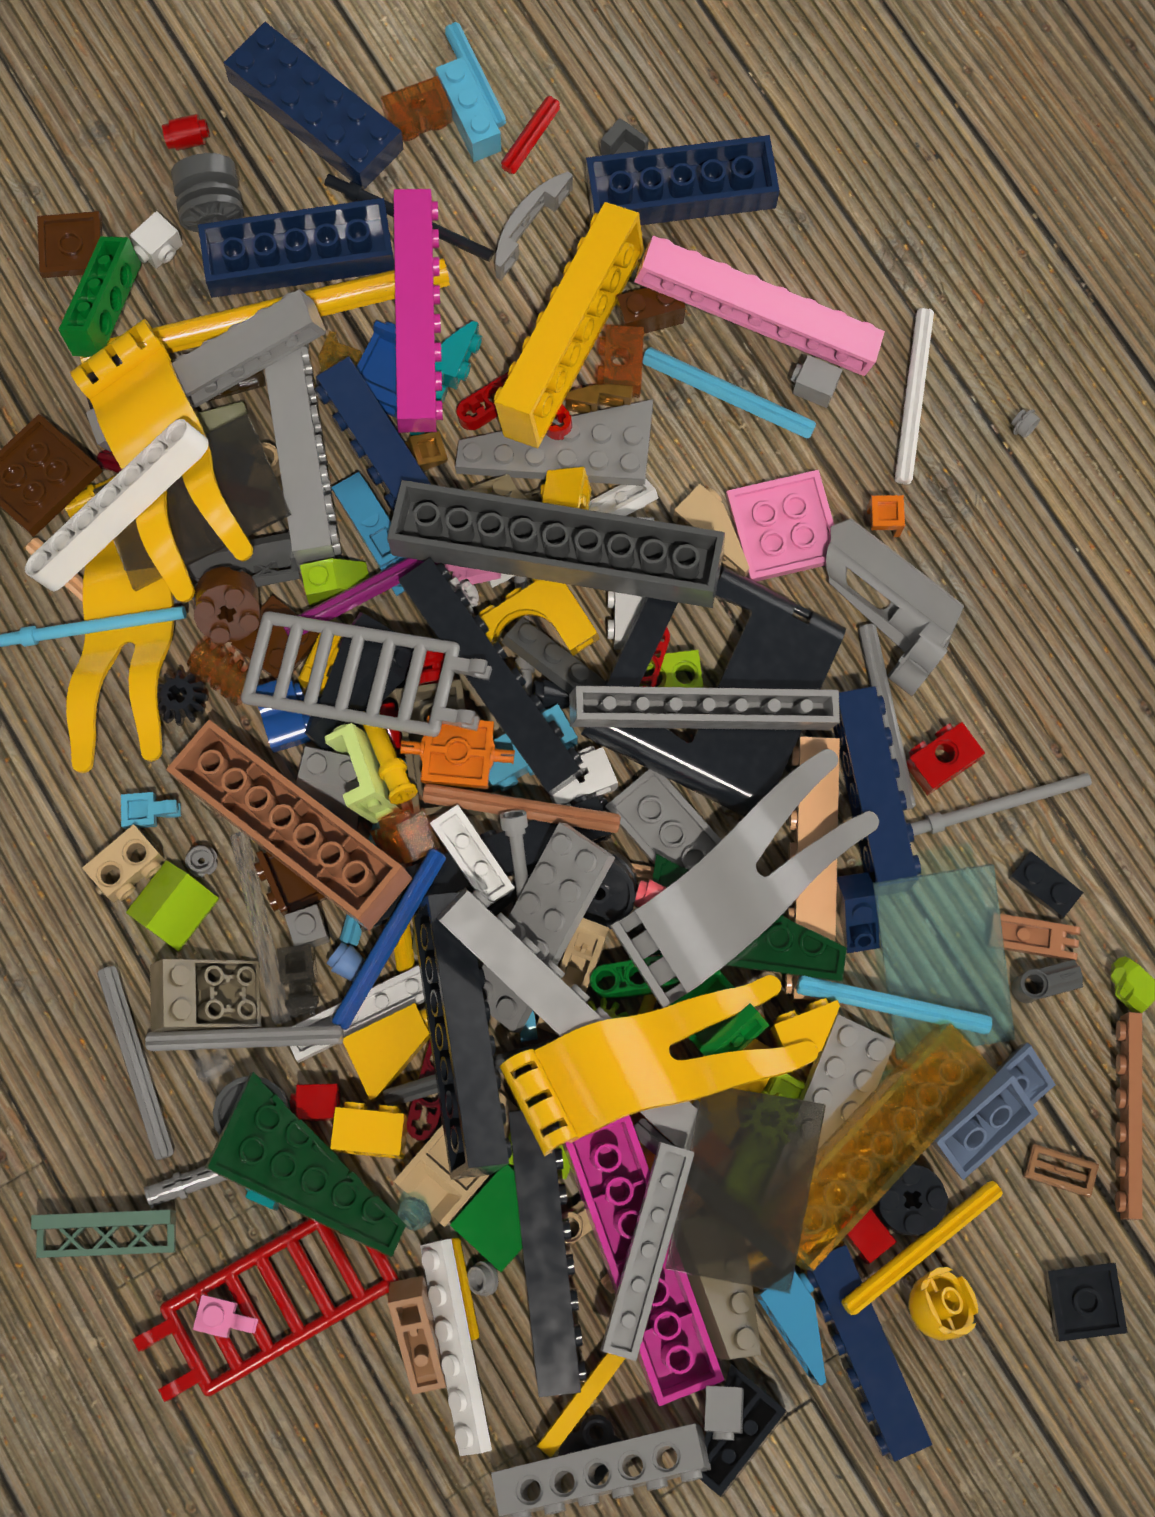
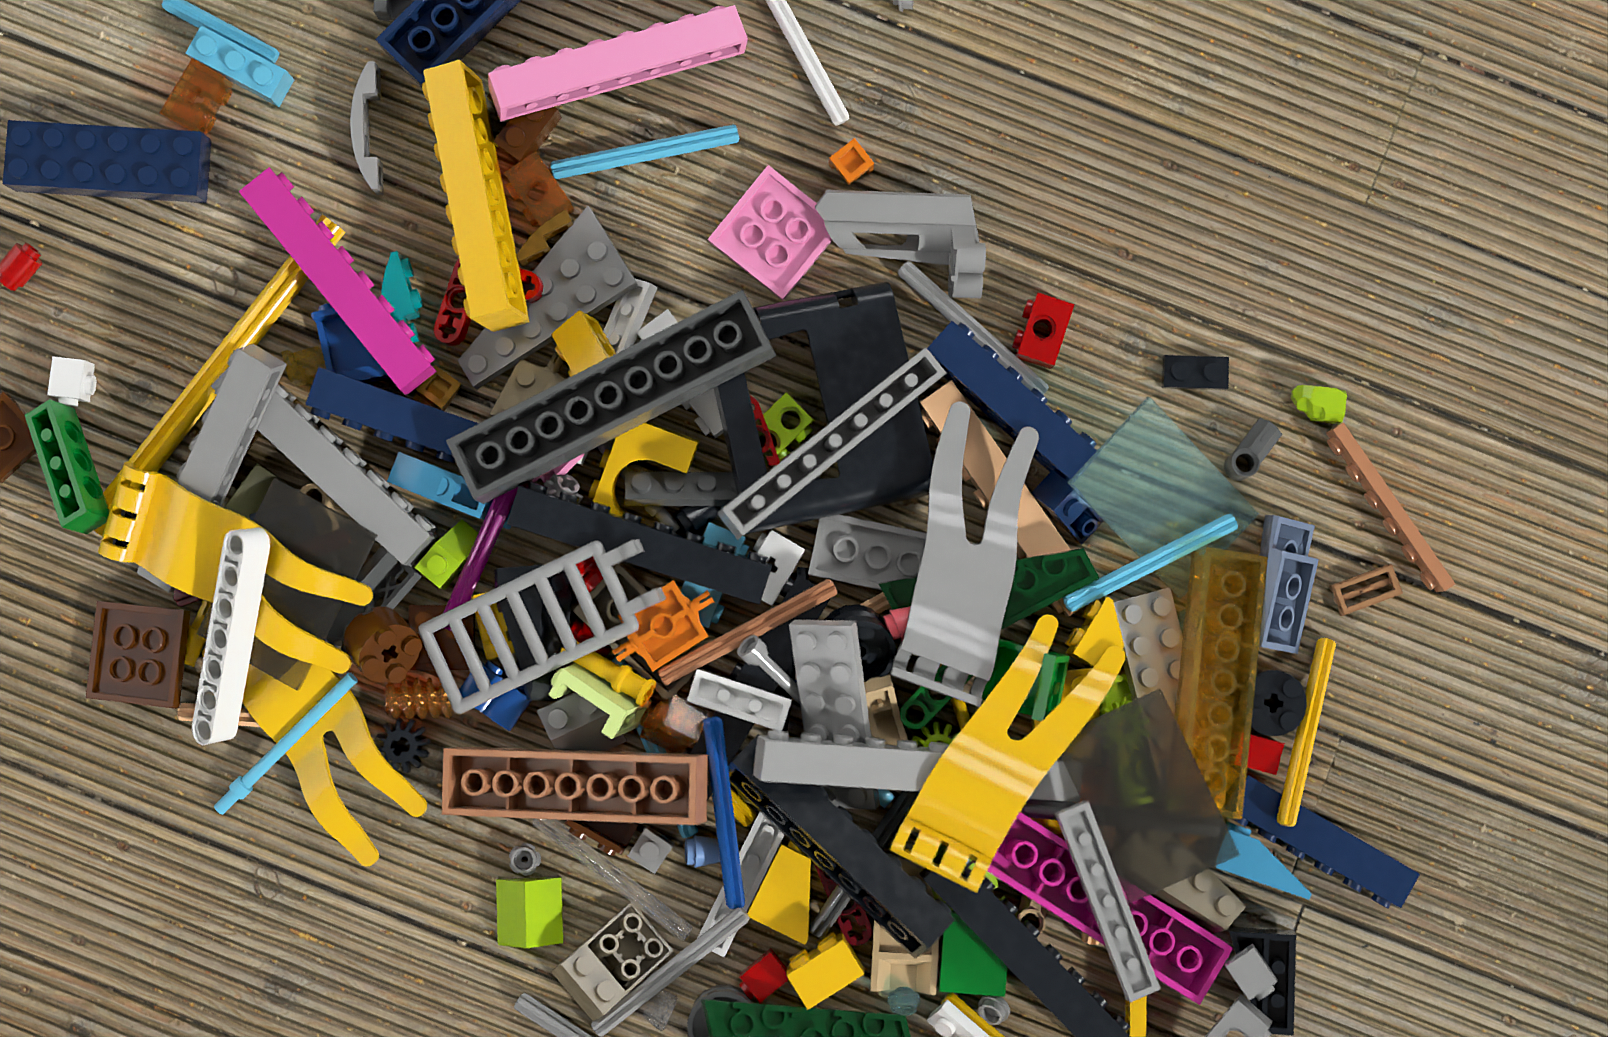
camera: 35 degrees left, 10 degrees up
(118, 857) = (459, 907): tan brick -> none
(143, 810) = (447, 855): medium azure plate -> none
(206, 190) = (82, 308): dark grey wheel -> none
(296, 247) = (194, 299): dark blue brick -> none
(299, 973) = (670, 888): clear smoke brick -> none
(356, 192) = (203, 210): black bar -> none
(530, 135) = (309, 48): red axle -> none
(705, 510) = (713, 277): tan slope -> none
(816, 381) = (709, 88): light grey brick -> none
(936, 822) = (1075, 386): light grey bar -> none
(943, 1305) = (1353, 763): yellow cylinder -> none
(1038, 937) = (1219, 420): nougat hinge -> none
(1086, 1302) = (1455, 676): black plate -> none

